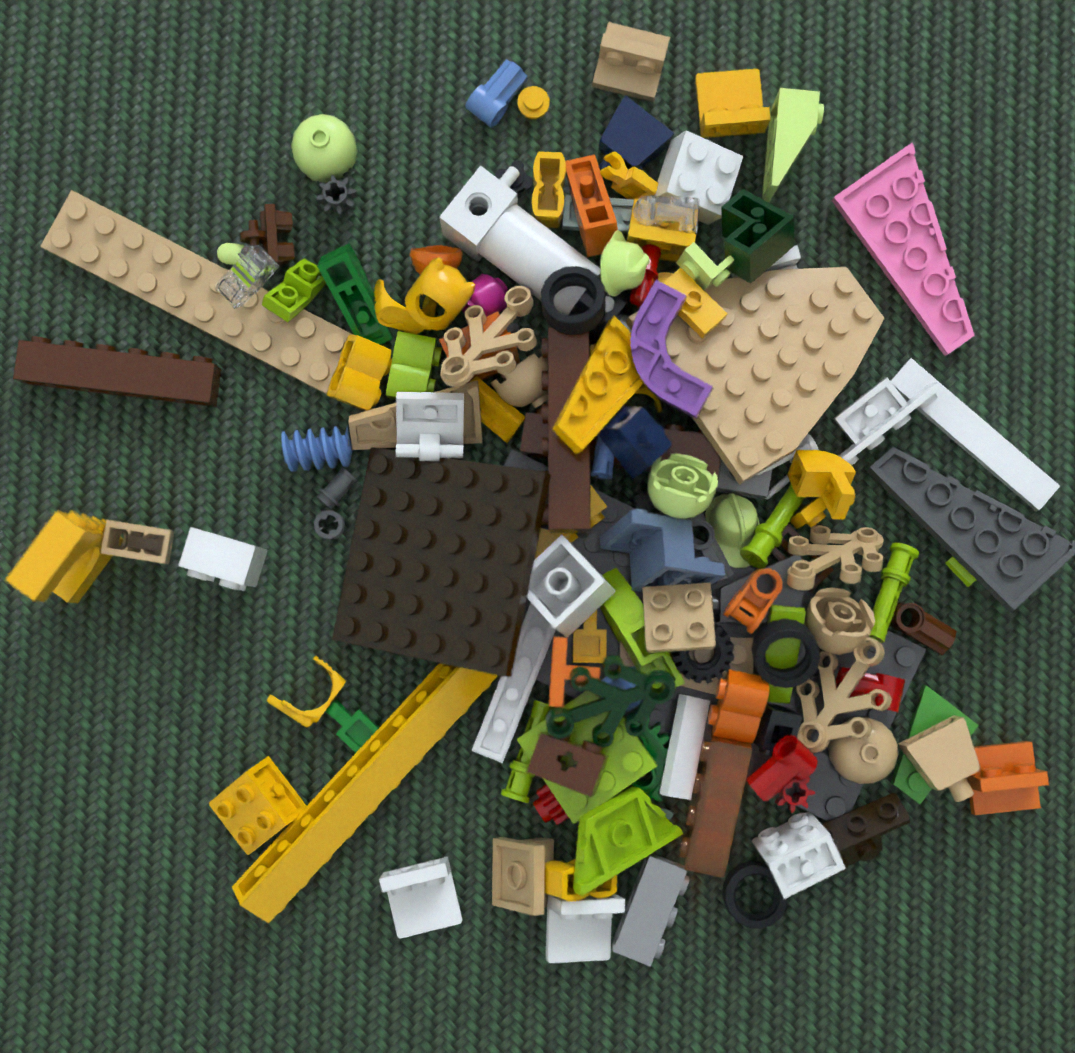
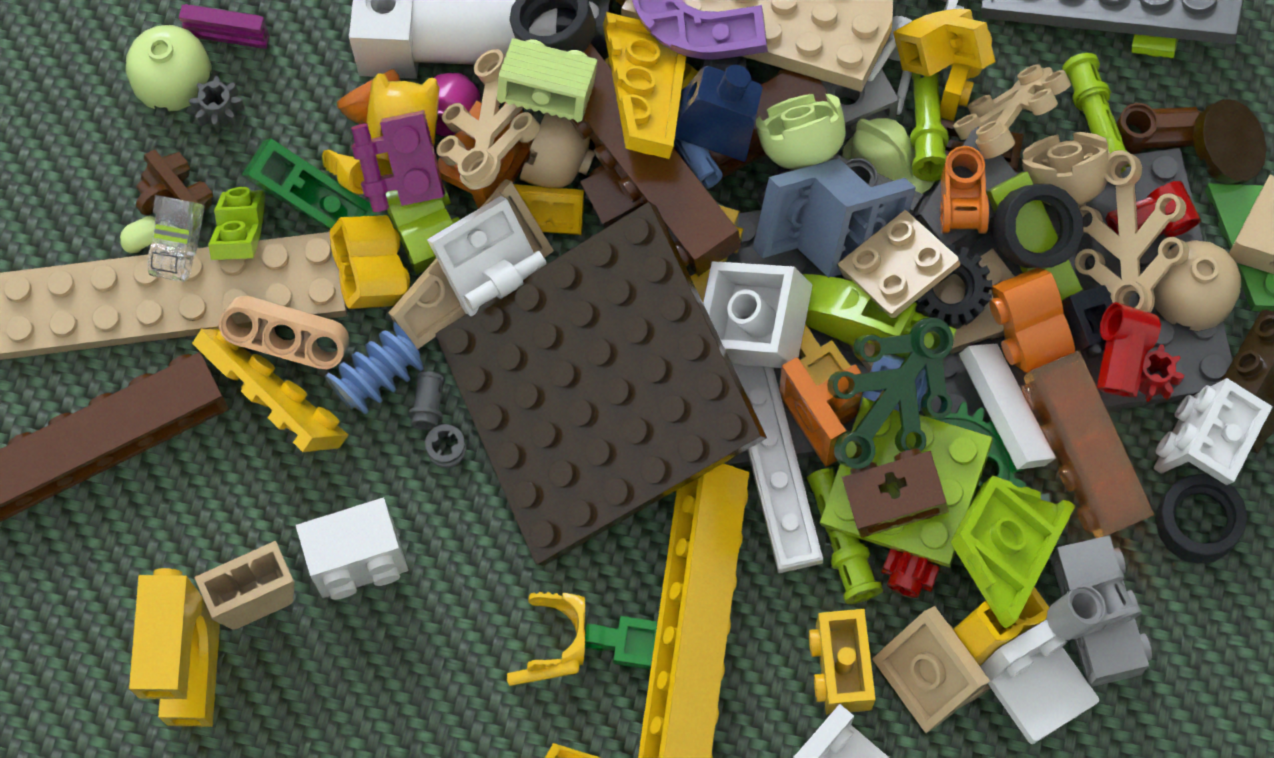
camera: 30 degrees left, 15 degrees down
(241, 414) = (315, 426): none -> yellow wing
(268, 373) = (264, 339): none -> light nougat beam
(376, 143) = (225, 26): none -> magenta tile
(425, 325) = (410, 156): none -> magenta plate
(471, 833) = (844, 661): none -> yellow brick
(538, 342) = (546, 79): none -> yellowish green brick
(645, 914) = (1099, 606): none -> light grey piece
(959, 669) = (1230, 141): none -> dark brown tile

